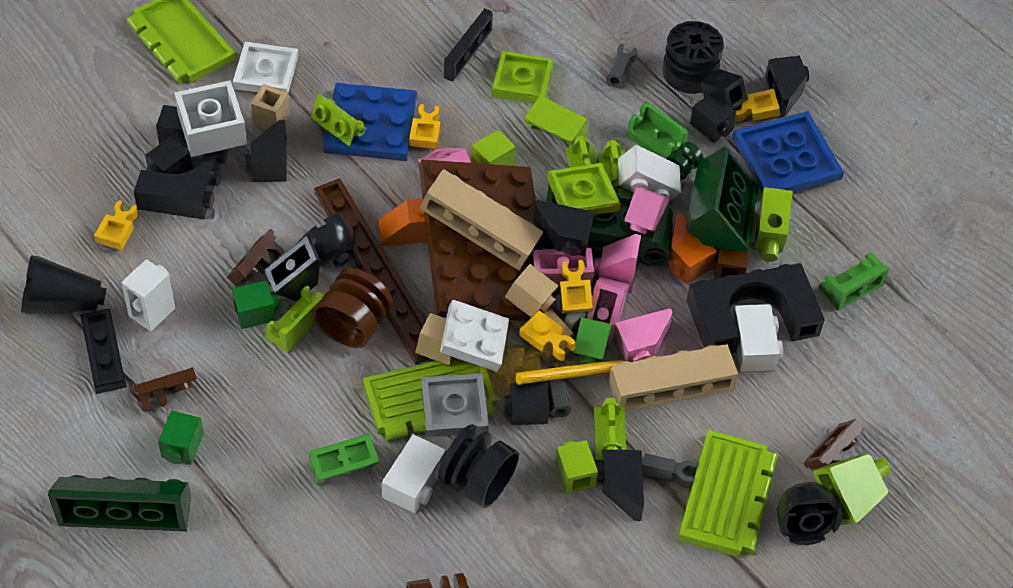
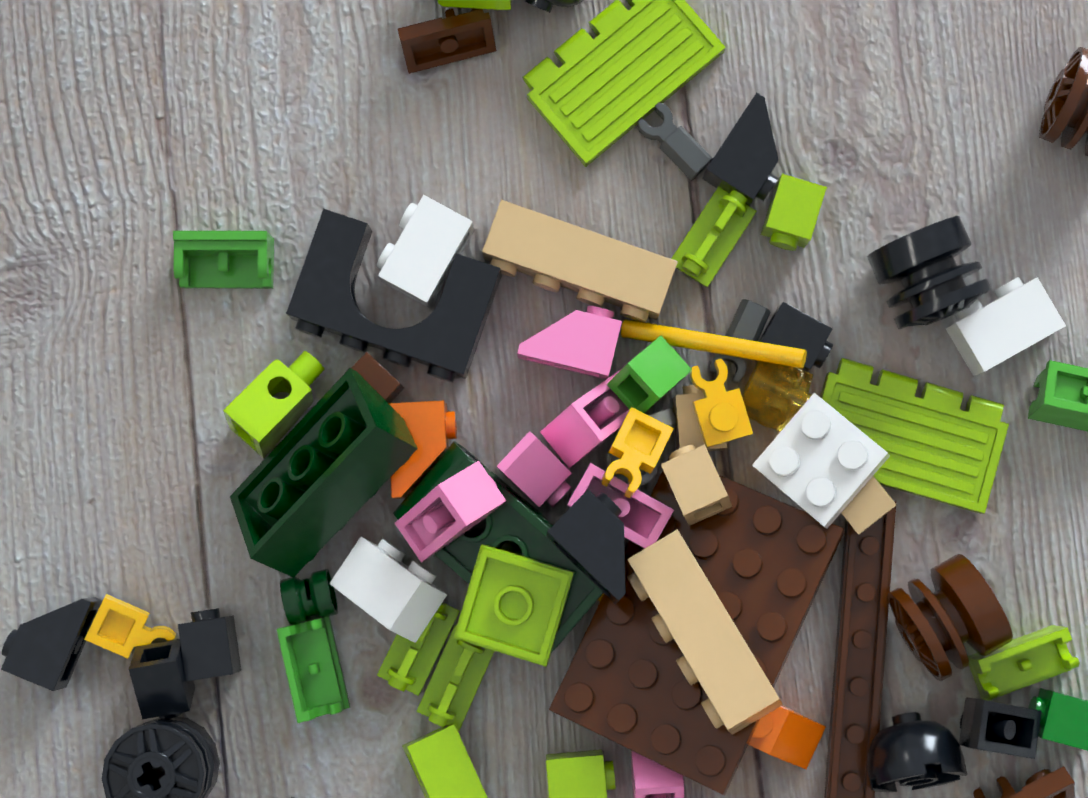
camera: 140 degrees left, 30 degrees up
(454, 403) = (899, 387): light grey plate -> none
(788, 154) = (150, 518): blue plate -> none

